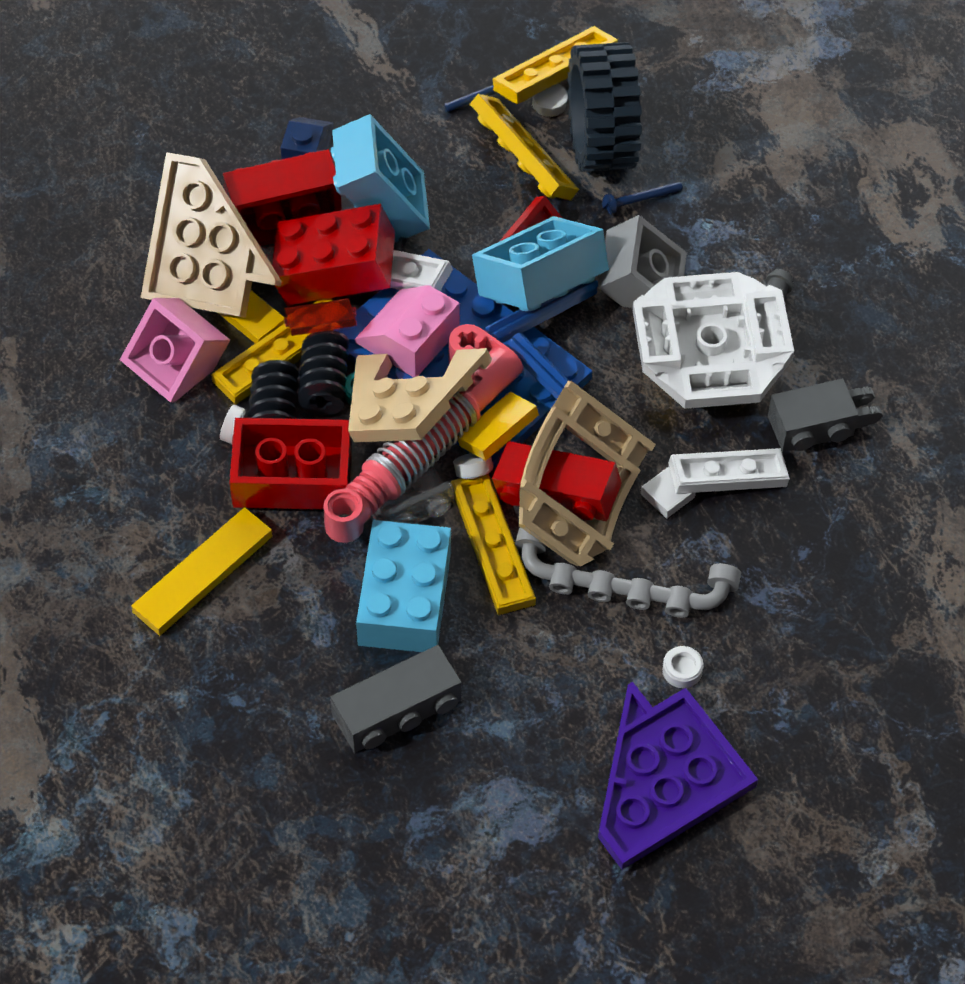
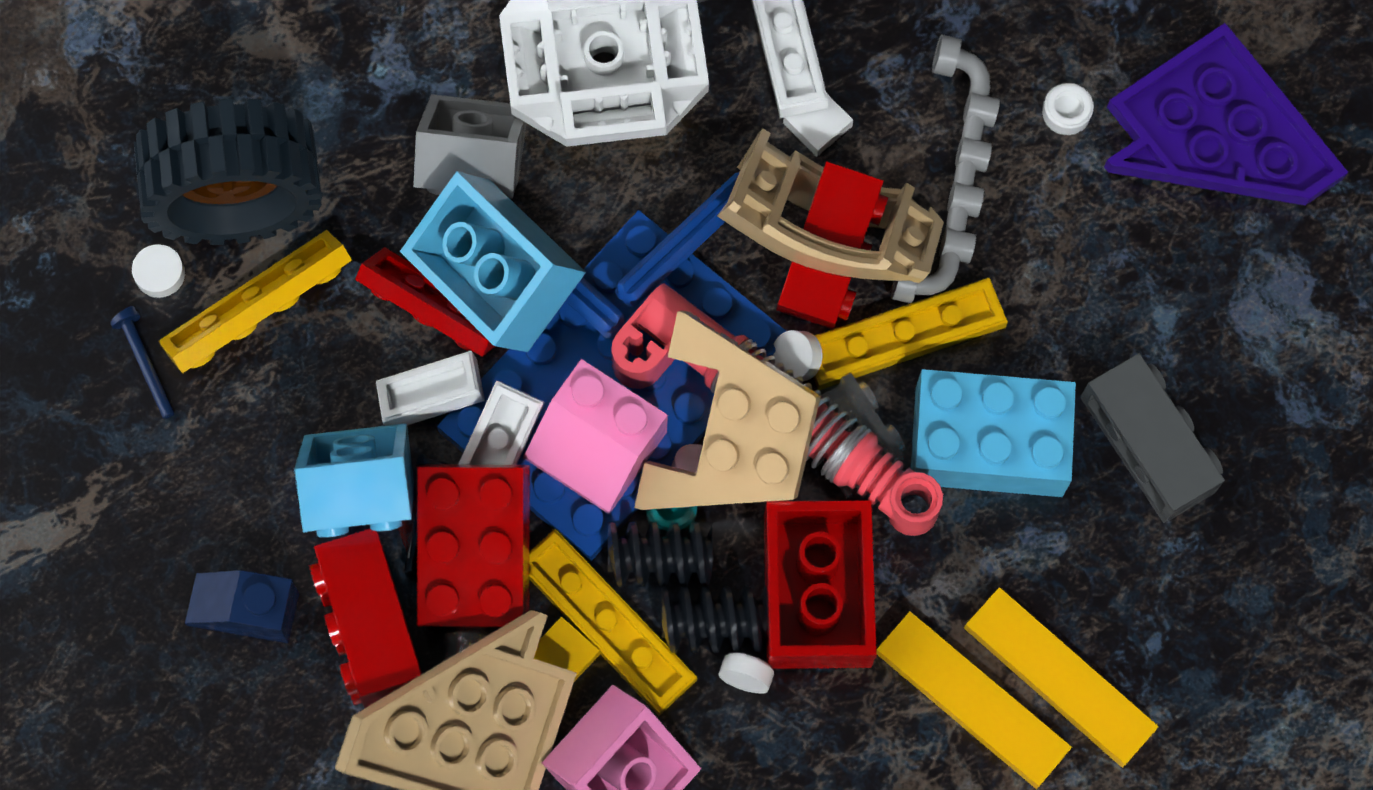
camera: 95 degrees left, 15 degrees up
(213, 630) = (1061, 677): none -> yellow tile
(320, 317) = (578, 559): clear red piece -> none
(453, 240) = (430, 390): none -> white tile
(498, 425) = (748, 312): yellow tile -> none
(546, 68) = (110, 256): yellow plate -> none
(611, 203) = (351, 186): dark blue piece -> none

